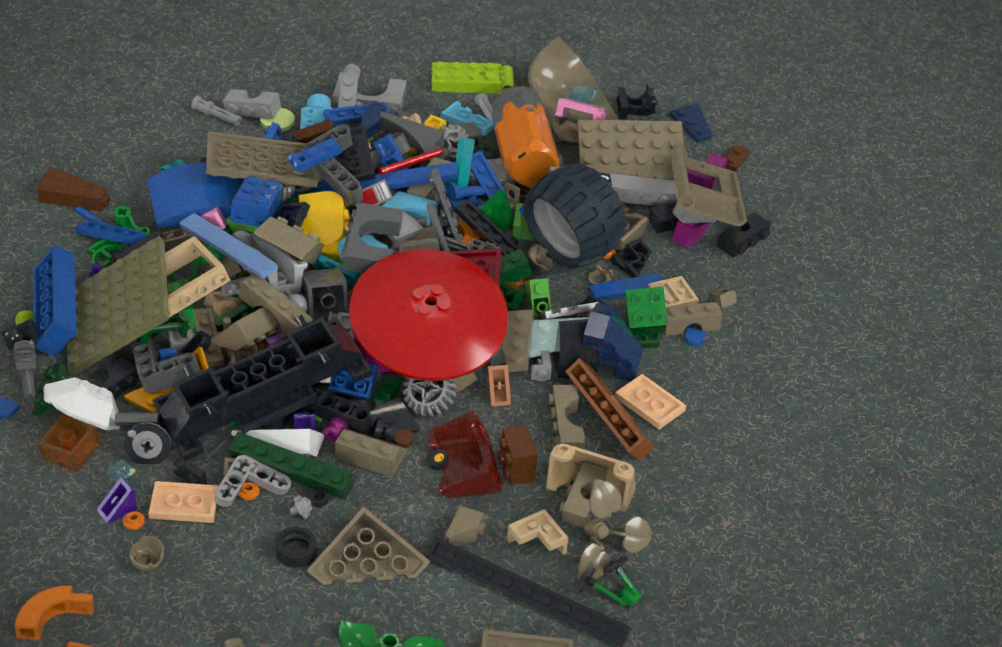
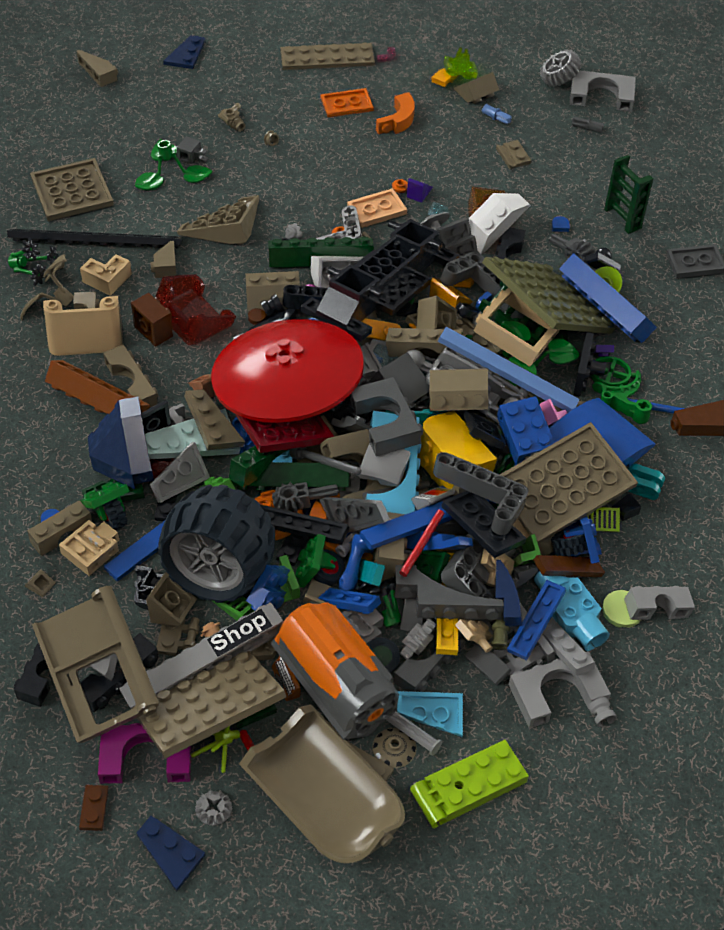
camera: 155 degrees right, 10 degrees up
(52, 374) = (542, 241): dark green wing -> none
(110, 232) = (634, 387): blue tile -> none
(147, 548) = (370, 164): dark tan hair -> none
(190, 472) = (381, 223): black plate -> none
(209, 108) = (695, 585): light grey pin -> none
(295, 560) = (274, 215): black tyre -> none
(315, 155) = (505, 476): blue plate -> none
(438, 459) = (216, 307): black tile -> none
(565, 104) = (300, 752): bright pink panel -> none
(583, 93) = (318, 805): clear light blue piece -> none
(636, 106) = (263, 832): black tile -> none
(650, 401) = (65, 428): light nougat plate -> none

